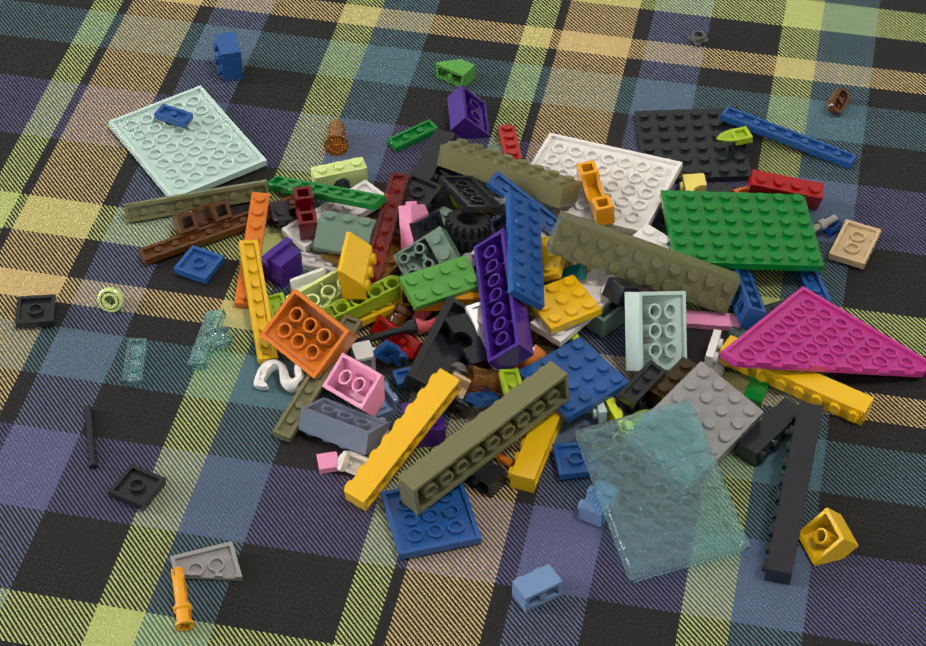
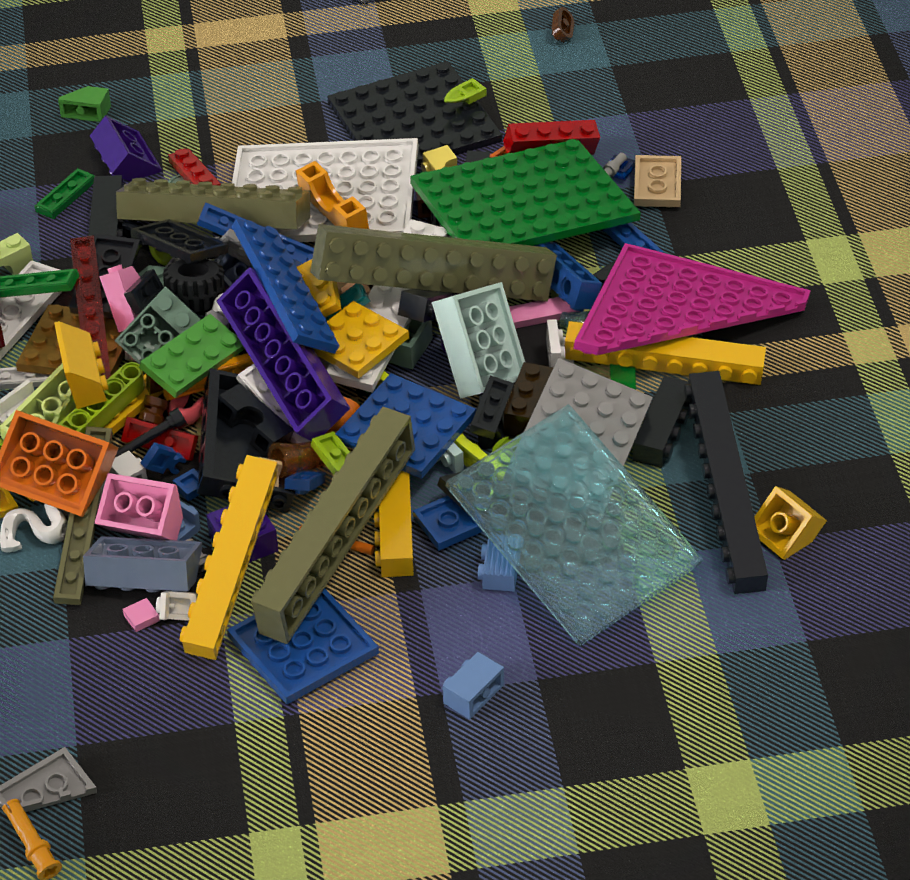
camera: 20 degrees left, 0 degrees up
(333, 228) = (31, 330): sand green slope -> none
(458, 368) = (260, 451): dark grey plate -> none
(488, 479) = (353, 575): black brick -> none
(788, 137) = (524, 79): blue tile -> none

